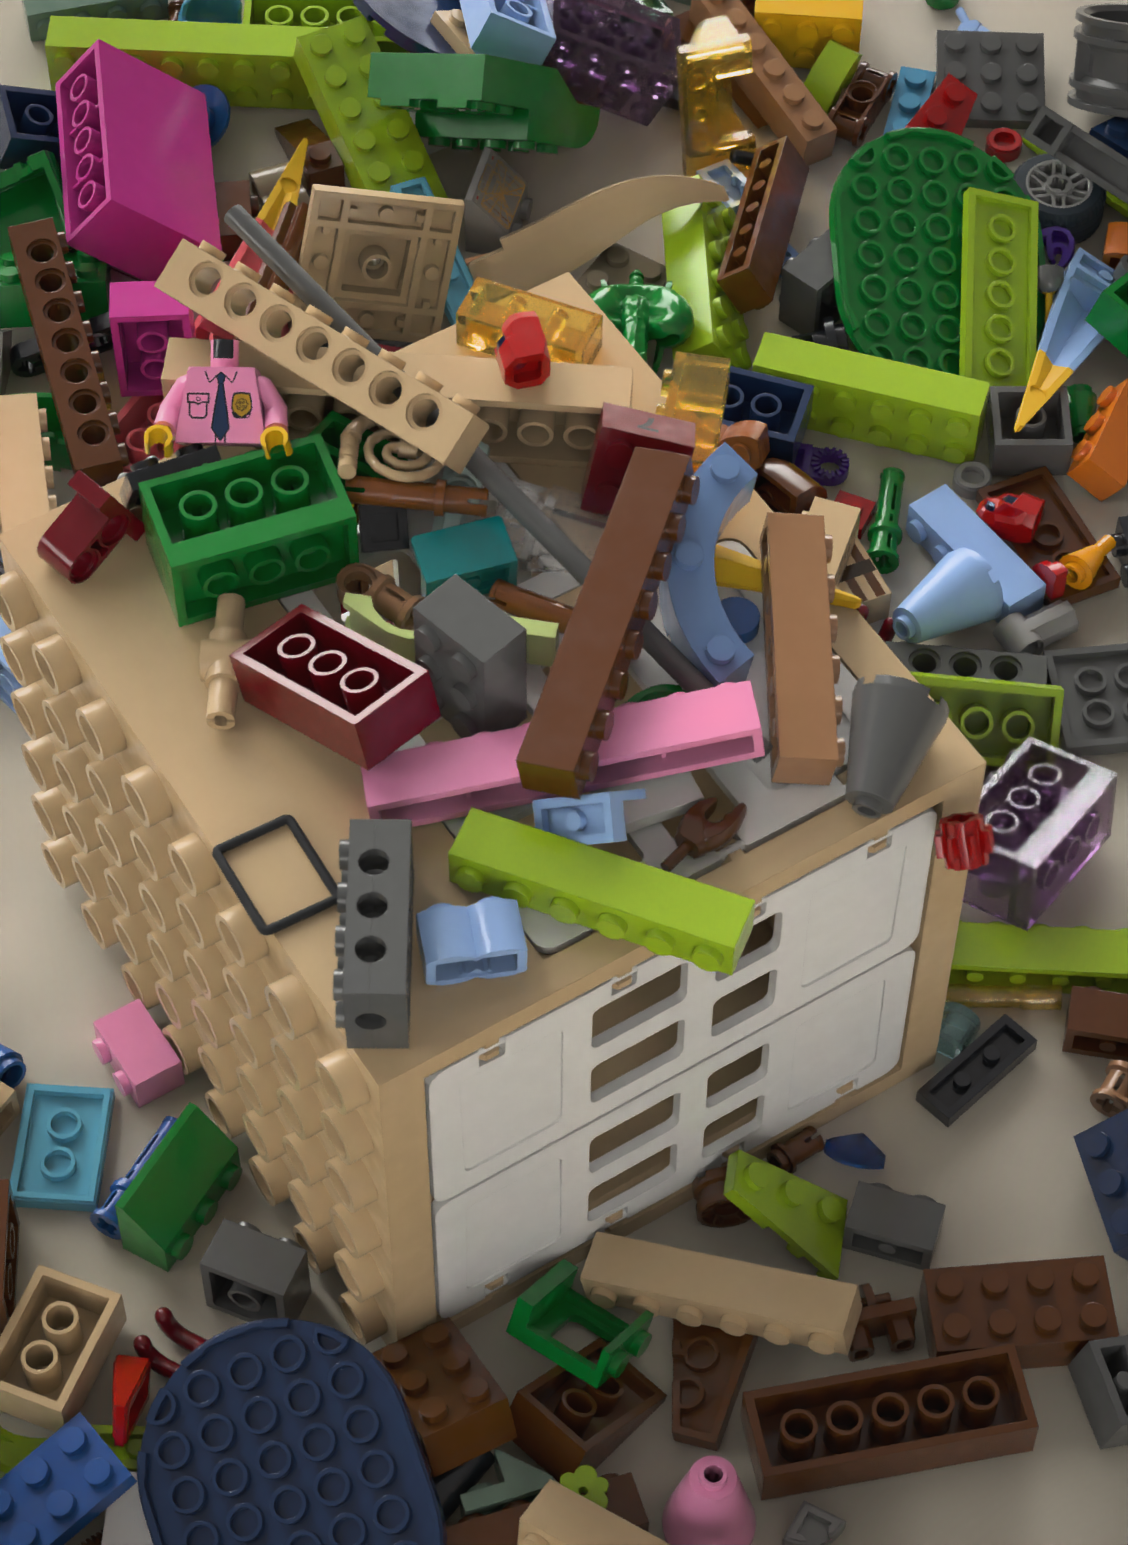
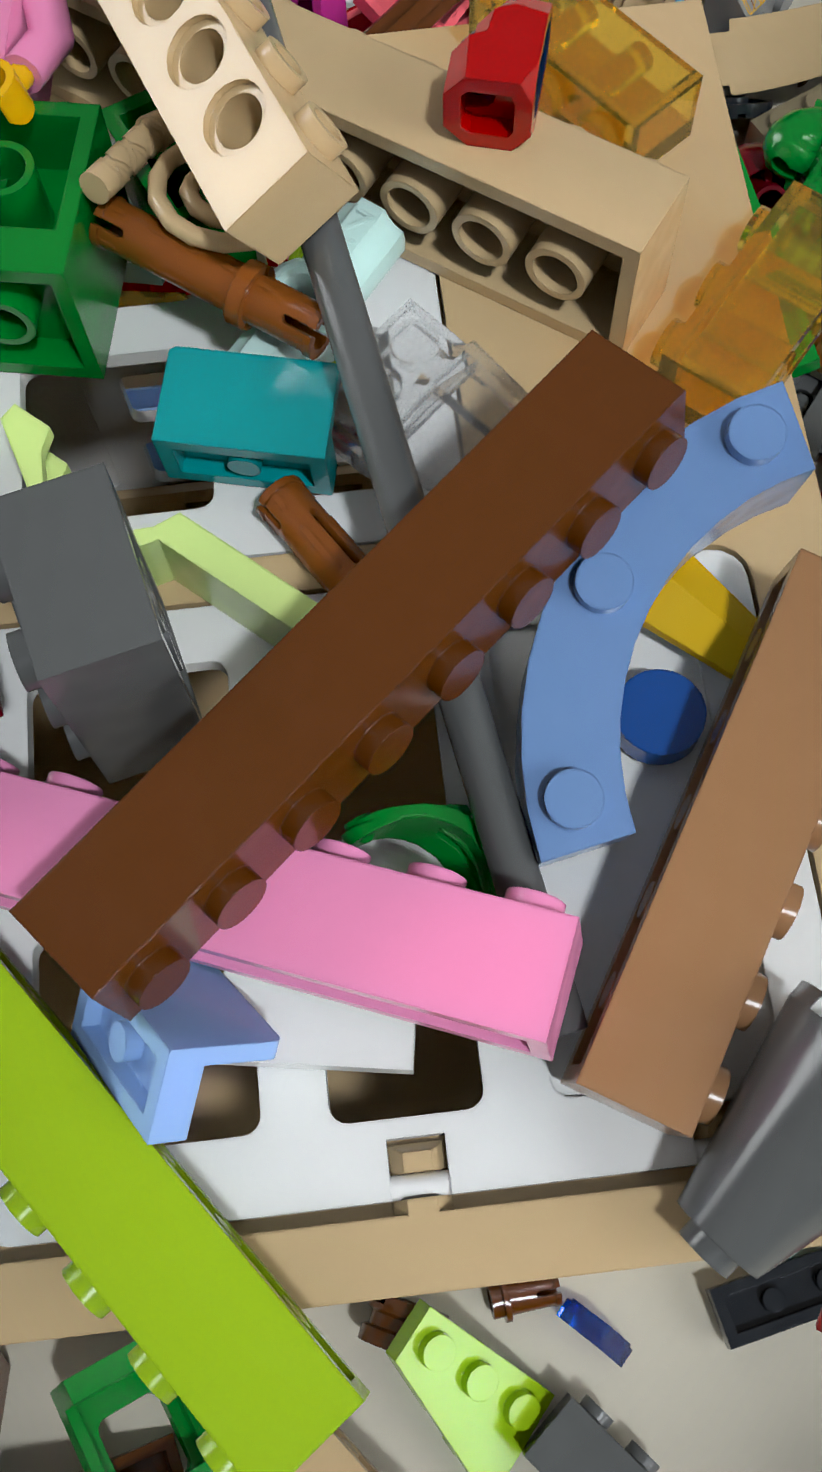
camera: 30 degrees right, 15 degrees up
(382, 528) = (160, 314): black plate -> none
(386, 596) = (94, 424): medium nougat connector -> none
(614, 444) = (631, 302): dark red brick -> none
(699, 836) = (367, 1149): reddish brown hand -> none

